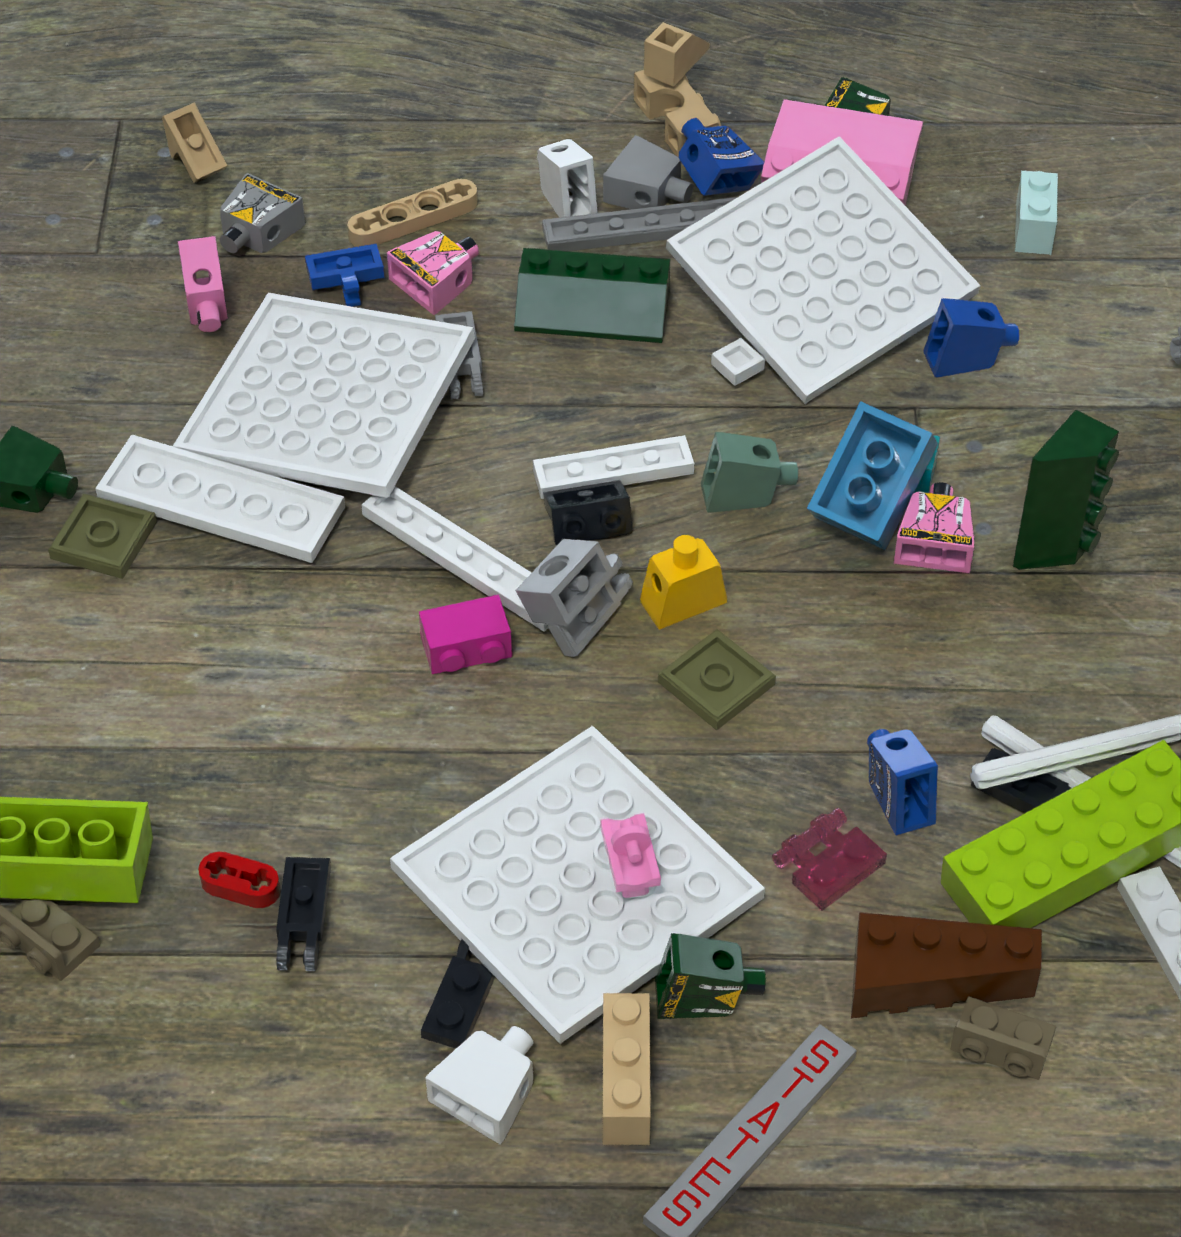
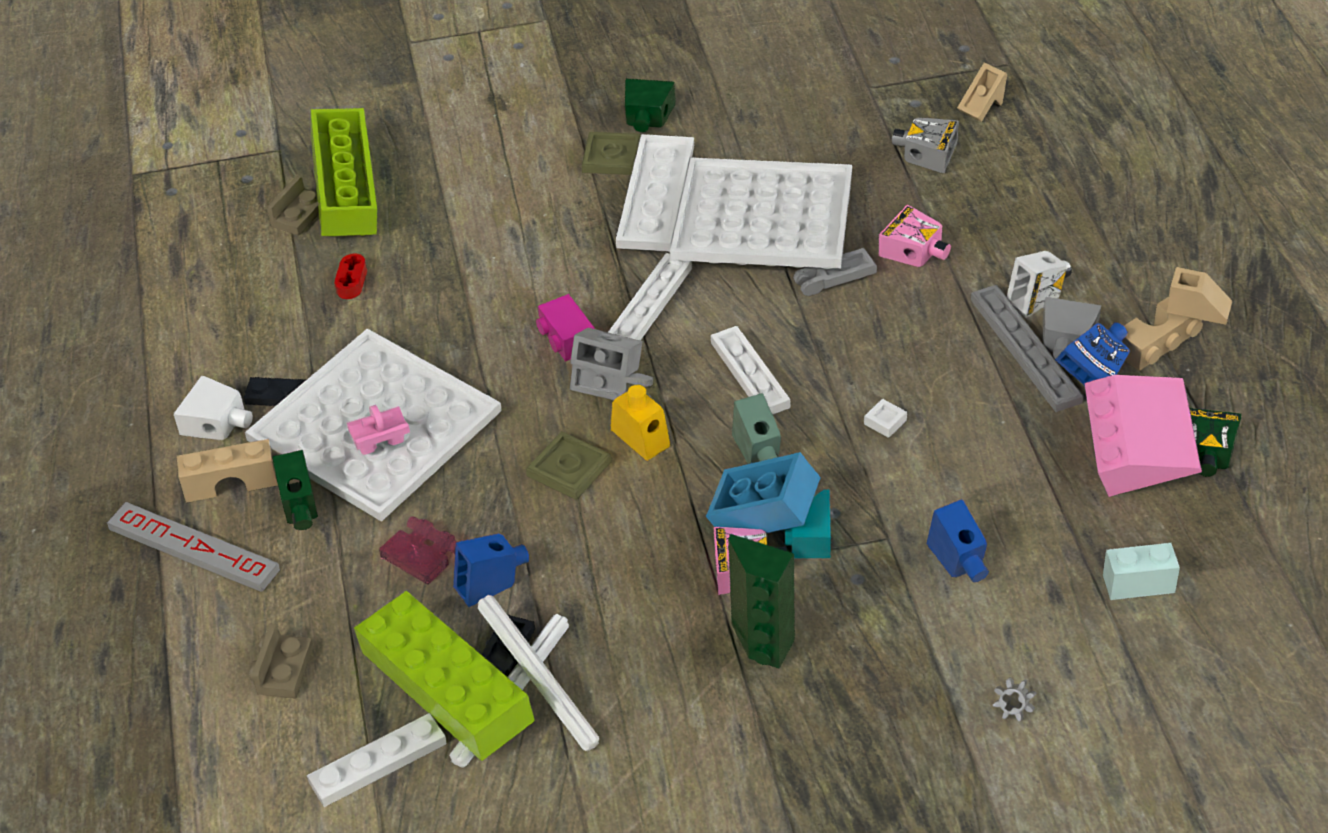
camera: 80 degrees right, 5 degrees down
(203, 295) = (840, 130): bright pink torso -> none
(302, 909) = (327, 306): black hinge -> none
(346, 269) = (894, 194): blue plate -> none
(459, 198) = (999, 236): tan beam -> none
(589, 512) = (702, 365): black bracket -> none
(592, 295) = (920, 325): slope -> none
(821, 268) = (993, 436): white plate -> none
(940, 962) = (331, 609): reddish brown wedge -> none

